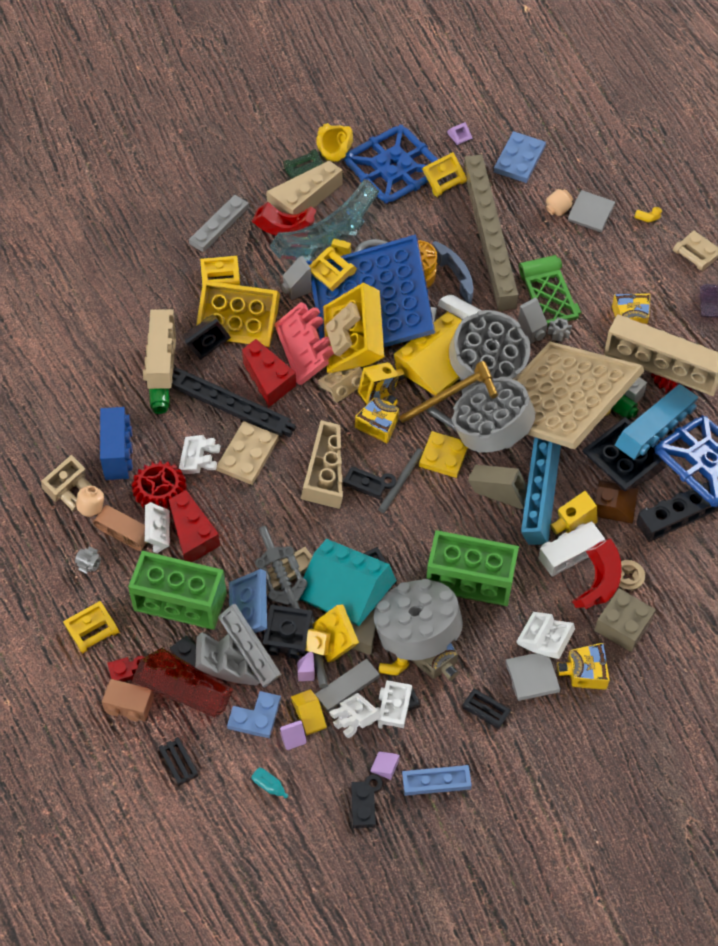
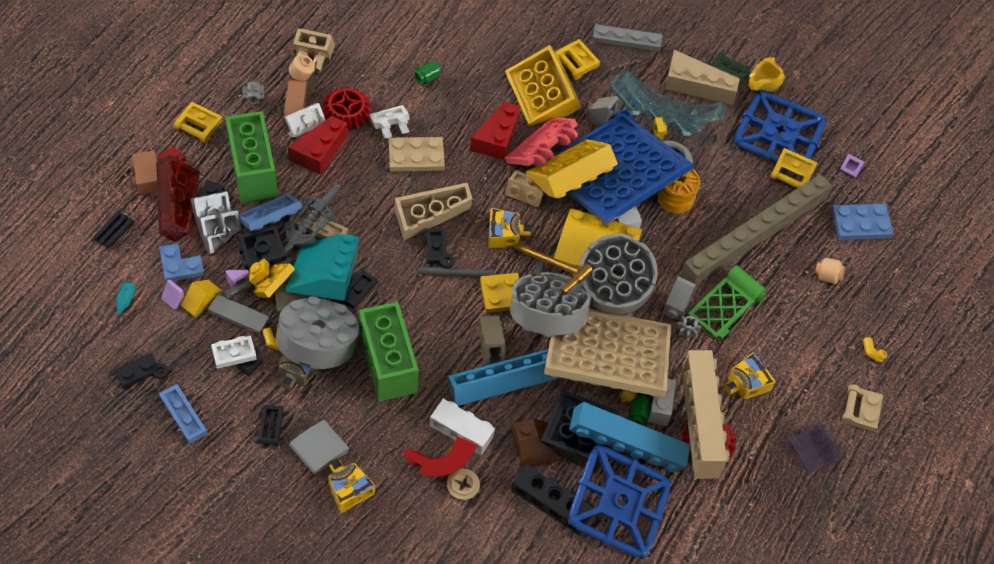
camera: 55 degrees right, 0 degrees up
(115, 443) = (363, 60): blue brick -> none
(160, 349) = (467, 49): tan wedge -> none
(206, 336) = (502, 74): black slope -> none
(231, 403) = (454, 121): black hinge -> none
(249, 645) = (232, 228): light grey tile -> none
(275, 221) = (654, 74): red arch -> none
(328, 273) = (618, 123): yellow plate -> none
(339, 326) = (563, 153): tan plate -> none
(358, 710) = (211, 329): white plate -> none
(379, 381) = (539, 212): yellow torso -> none
(385, 764) = (180, 372): lavender slope -> none
(448, 257) = (687, 236): sand blue slope -> none
(457, 306) = (658, 240): white slope -> none
(546, 635) = (363, 441): white slope -> none
(574, 513) = (497, 413): yellow torso -> none
(591, 211) = (842, 301): light grey slope -> none
(625, 620) = (412, 497): dark tan brick -> none

